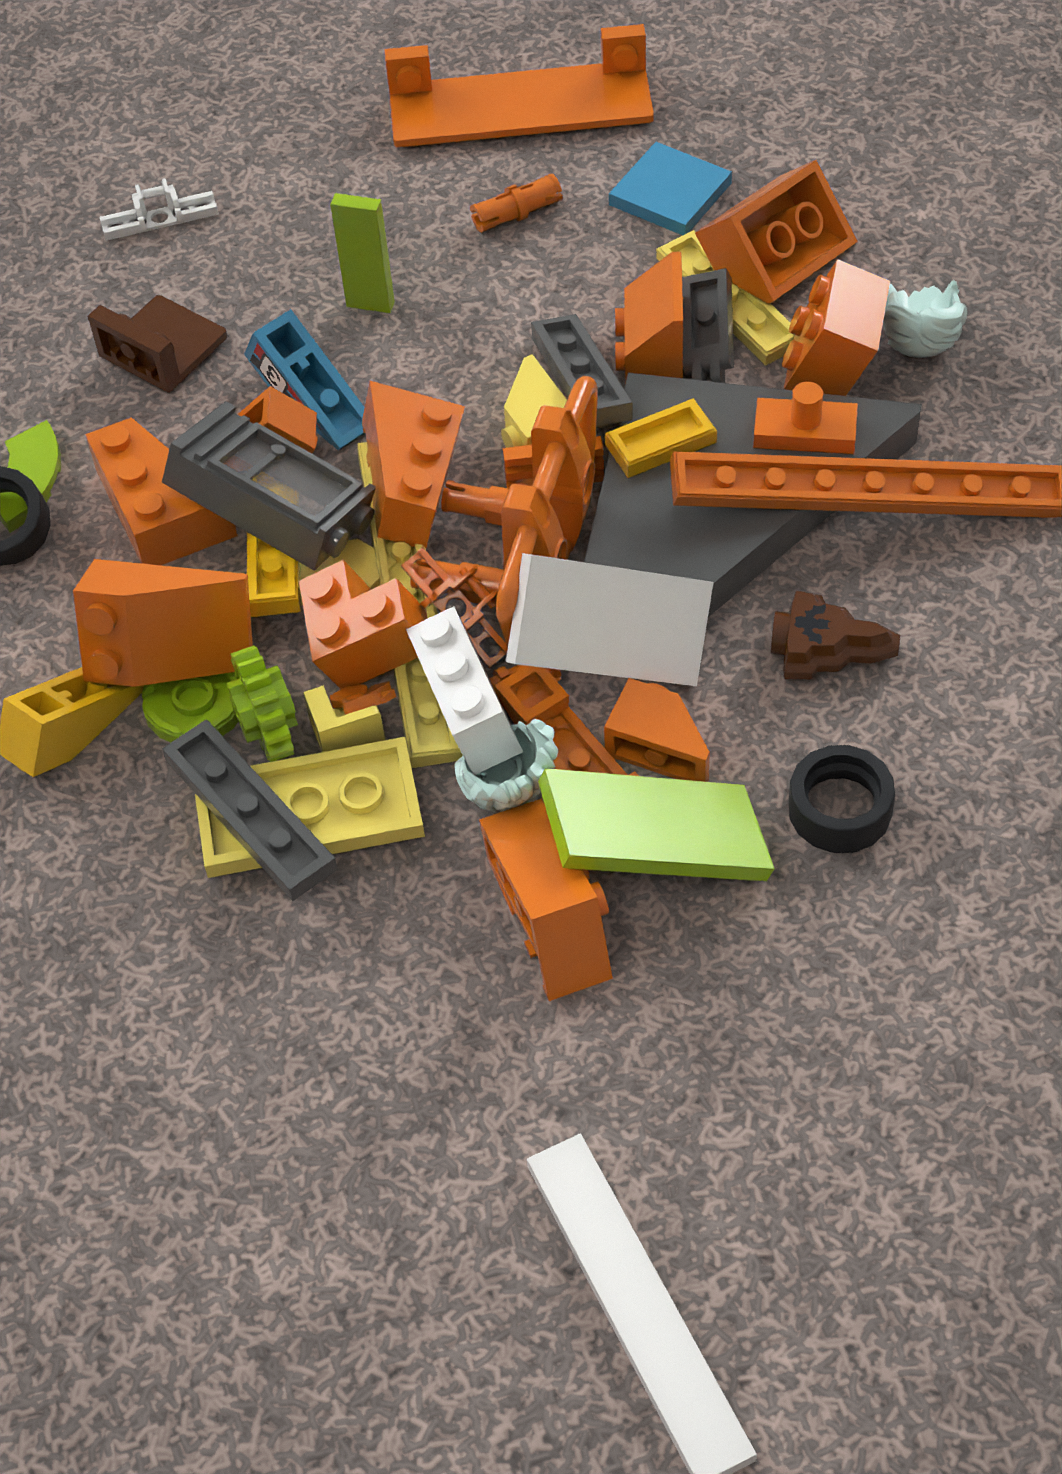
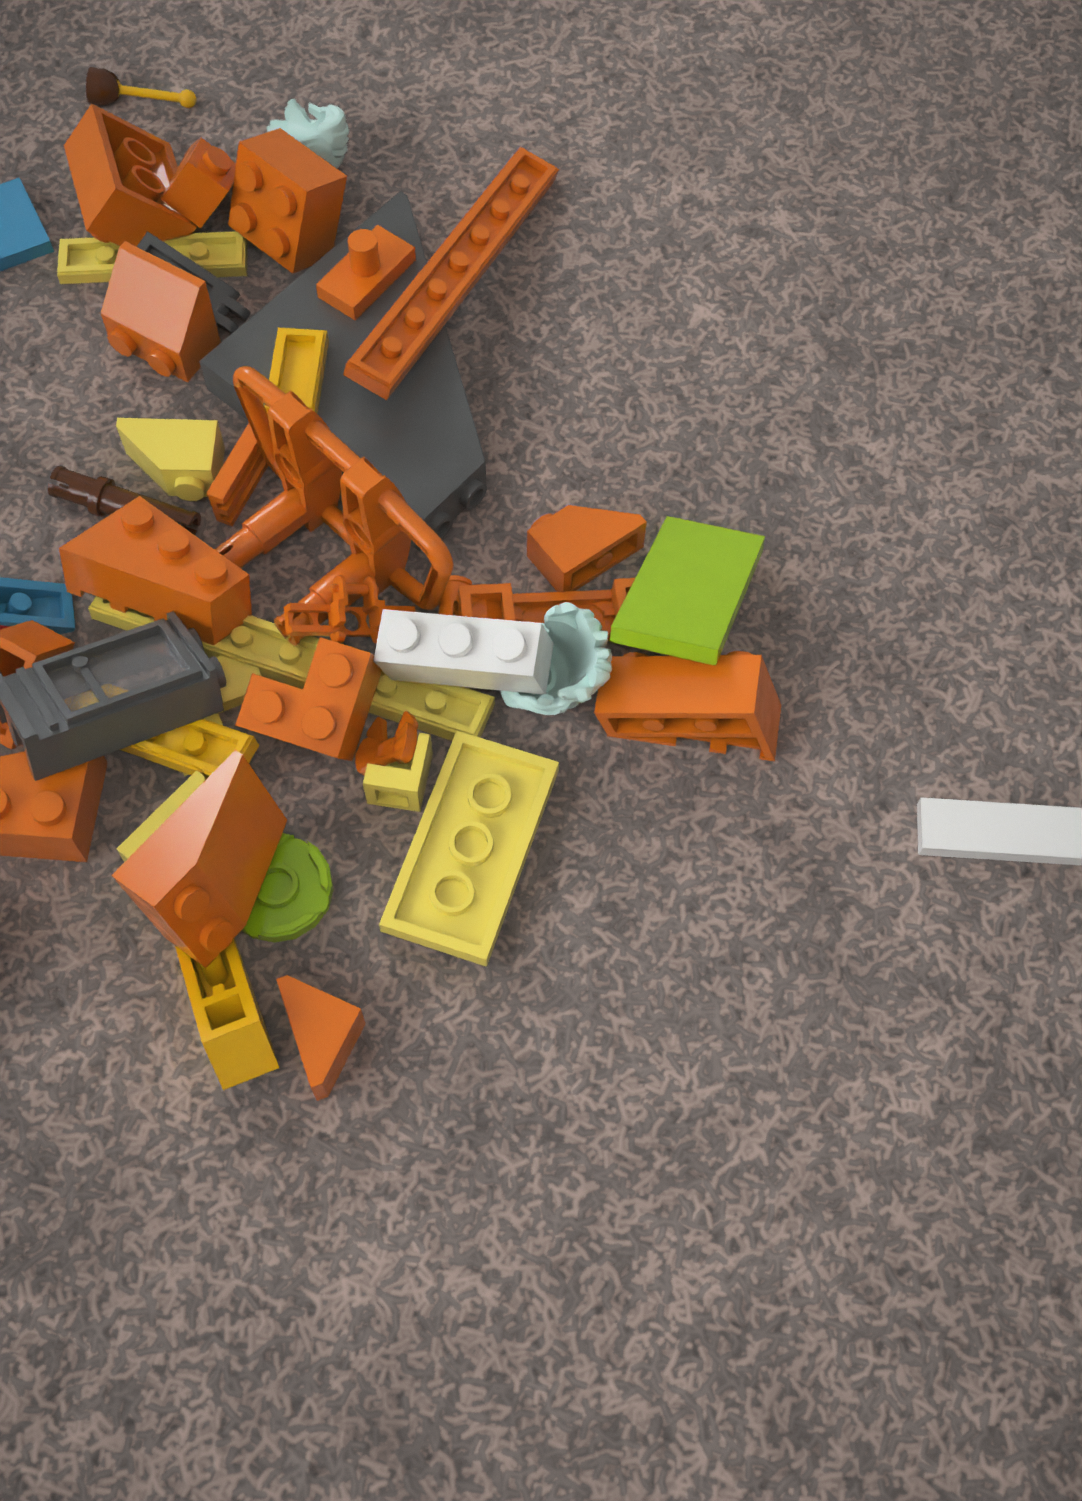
camera: 65 degrees left, 10 degrees up
(74, 789) = (323, 1031): none -> orange slope
(250, 810) = (460, 888): dark grey plate -> none
(262, 703) = (354, 821): lime gear -> none
(468, 392) = (104, 497): none -> reddish brown pin
(574, 354) = (156, 394): dark grey plate -> none
(609, 620) = (482, 506): white tile -> none
(800, 264) = (200, 182): none -> orange slope
(827, 638) = (564, 387): reddish brown rock -> none
(841, 763) = (724, 490): black tyre -> none
(873, 167) = (105, 88): none -> hinge

